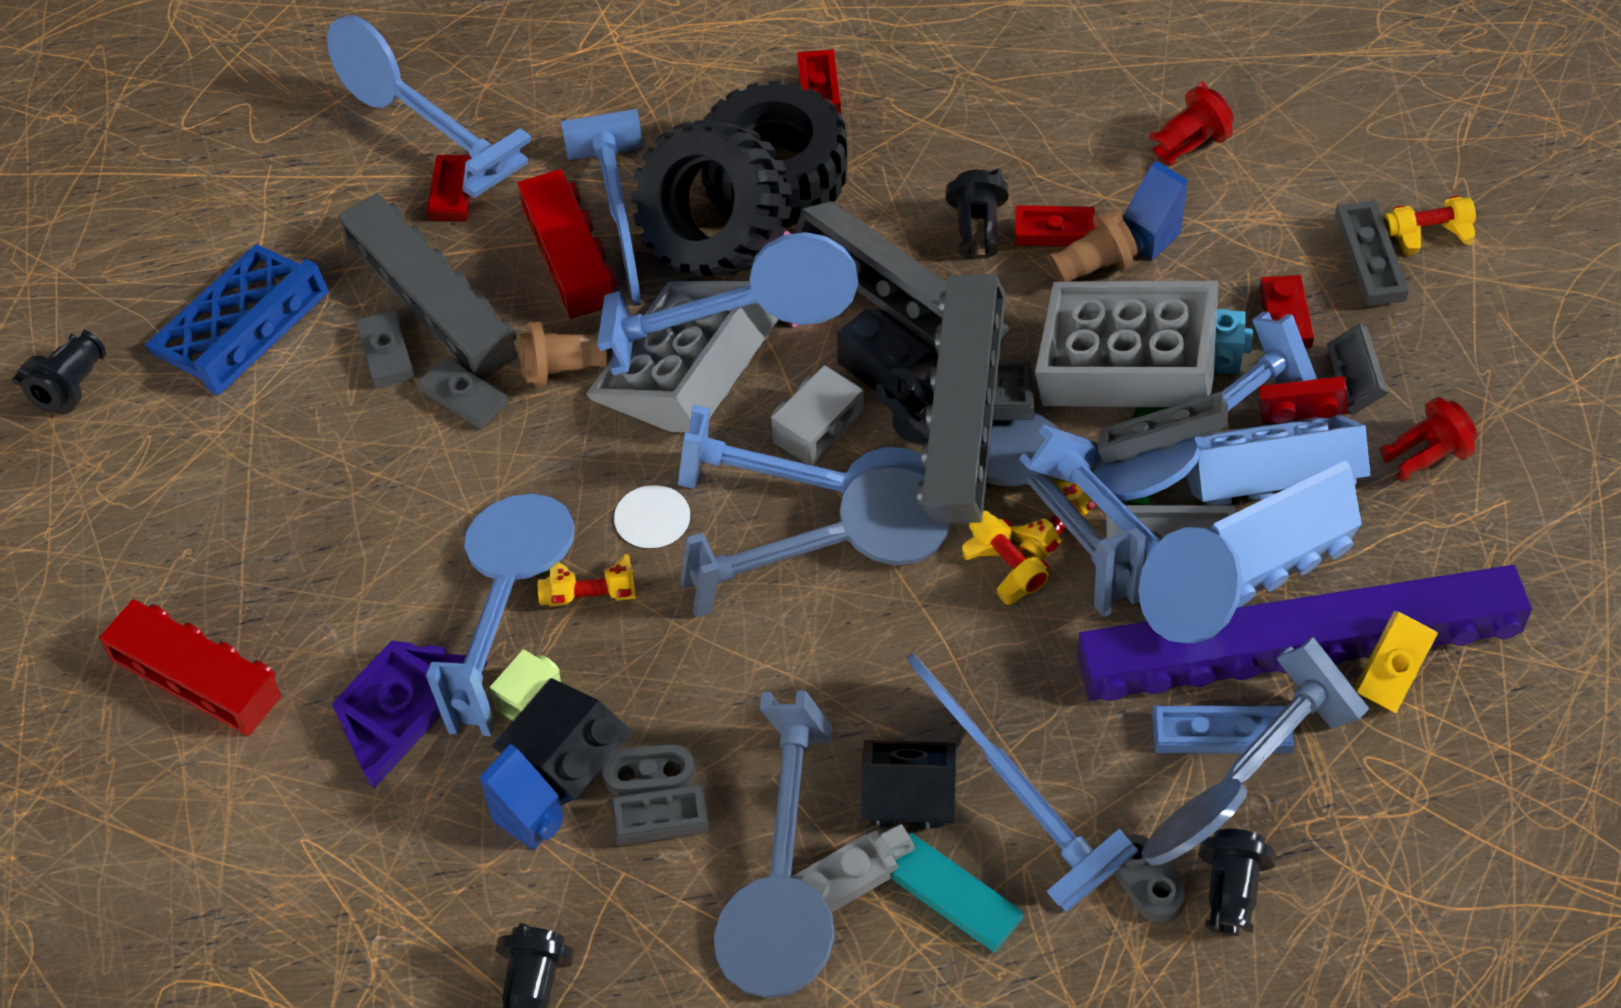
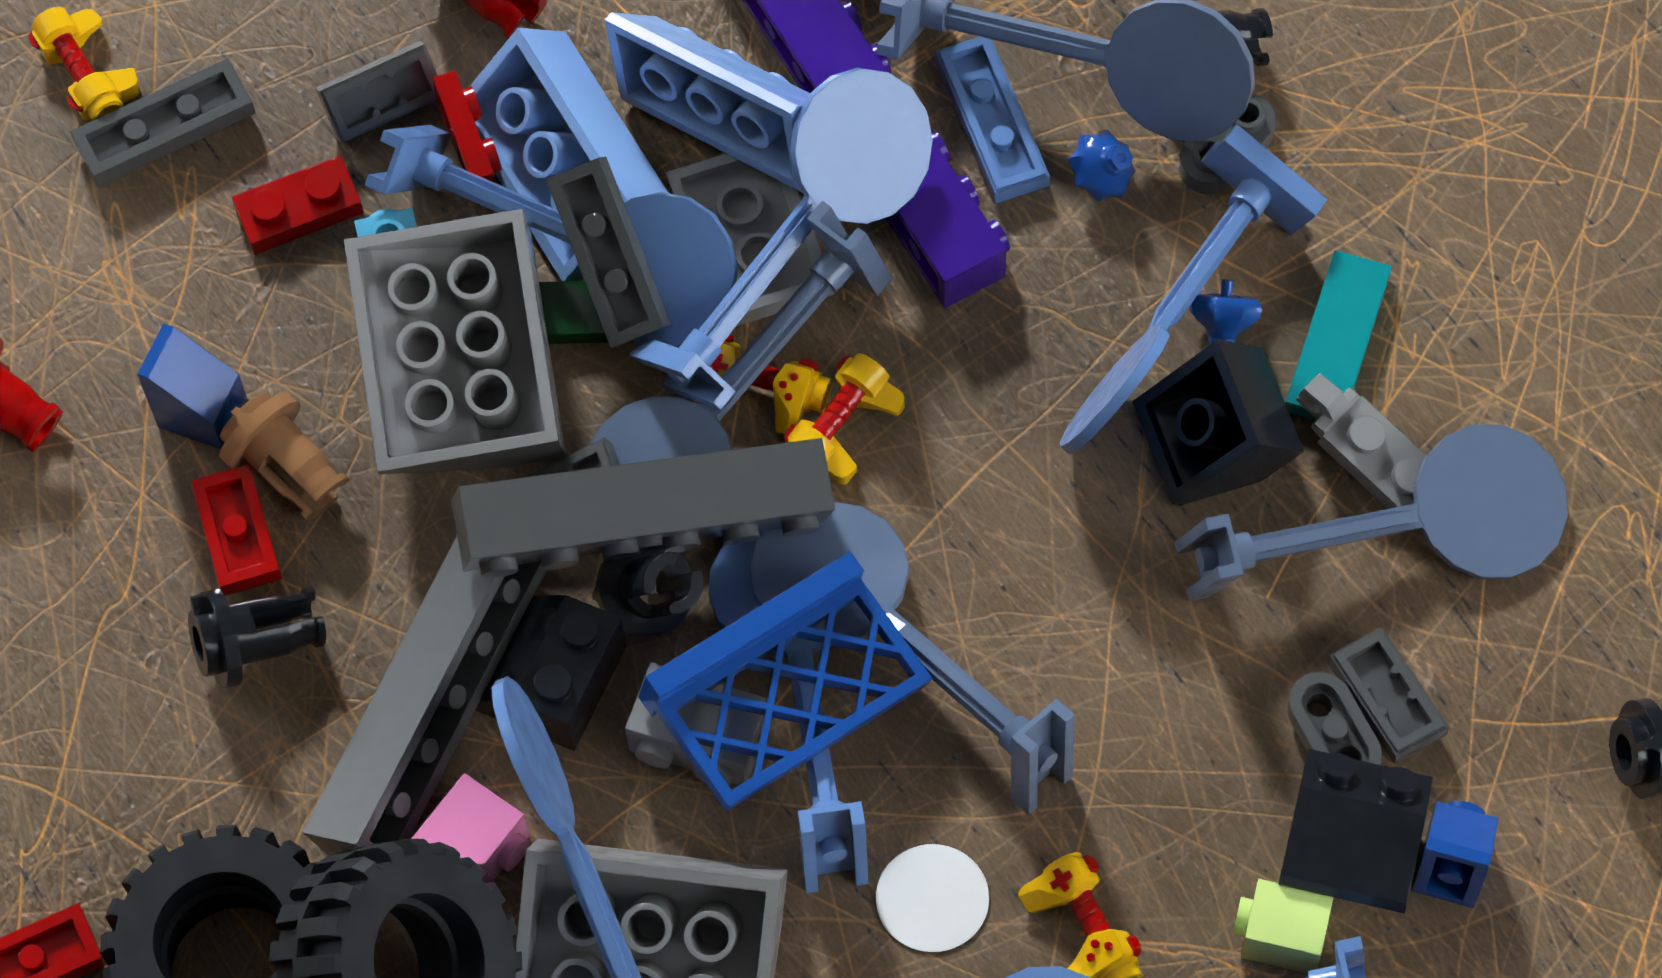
camera: 110 degrees left, 10 degrees up
(847, 437) = (756, 636): none -> blue fence
(998, 816) = (1225, 313): none -> blue piece
(1151, 779) = (1102, 165): none -> blue piece

